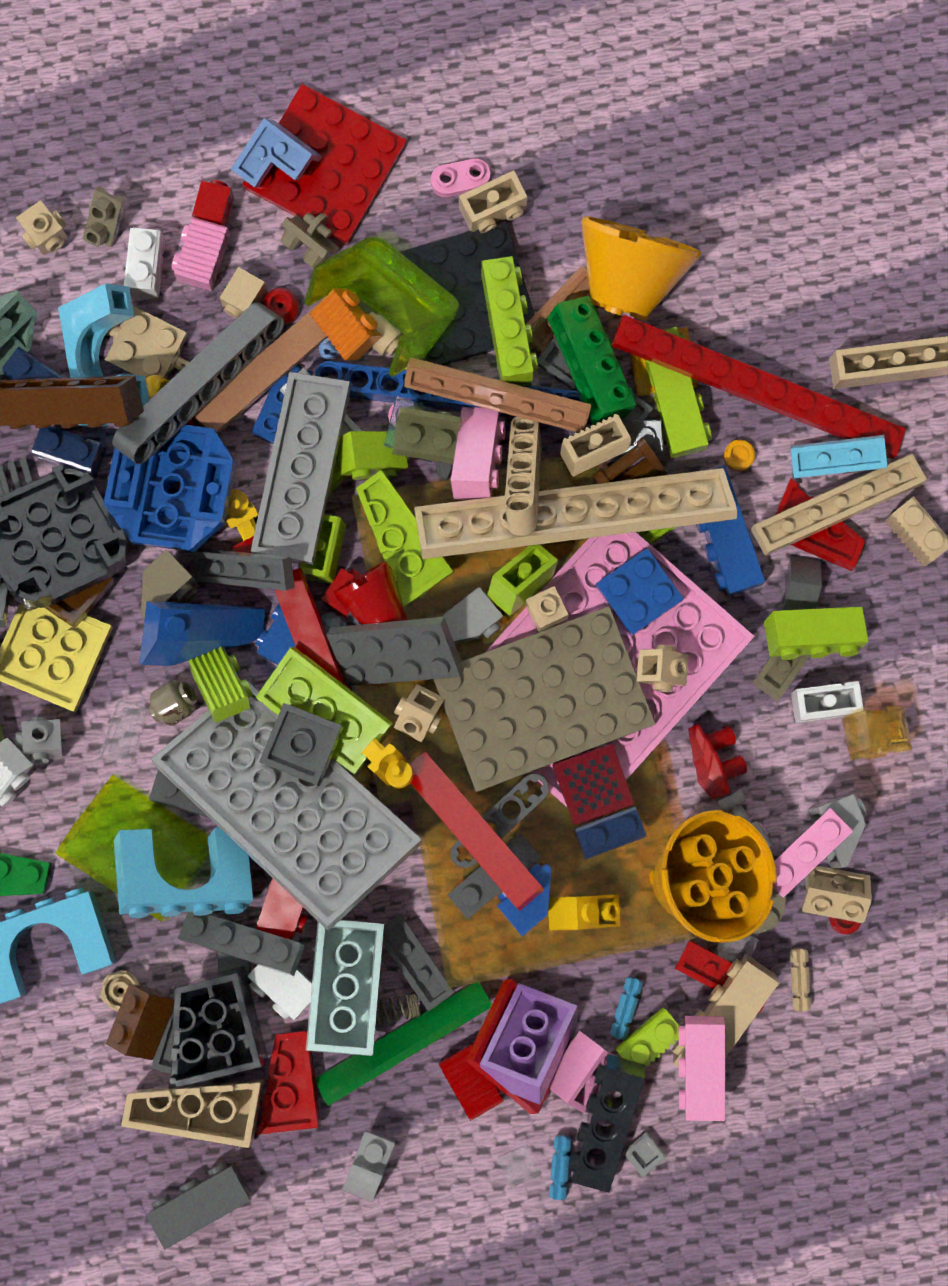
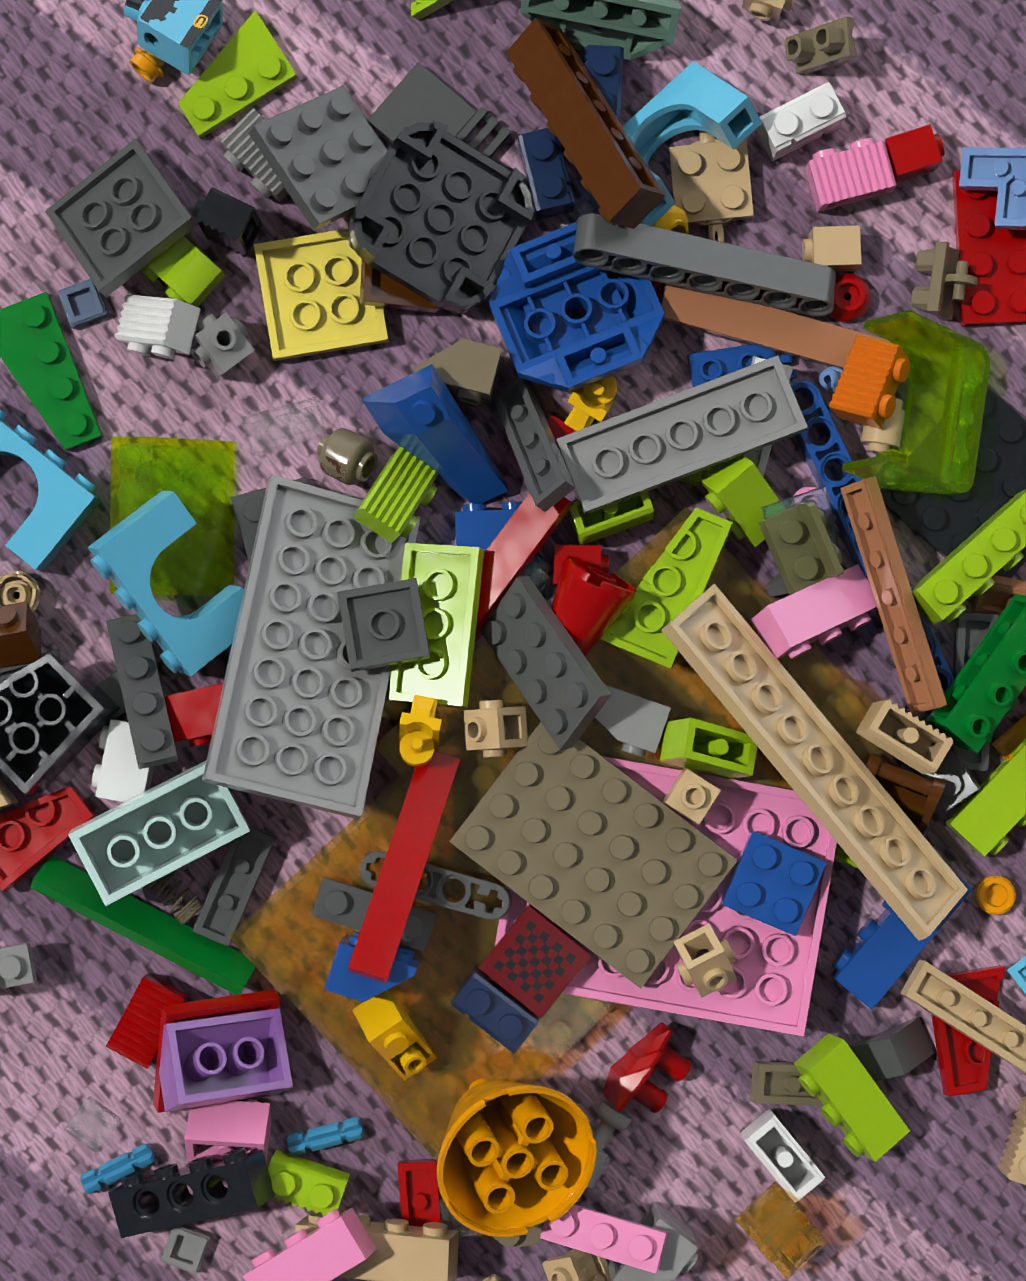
camera: 65 degrees right, 5 degrees up
(523, 476) = (820, 680): tan beam -> none

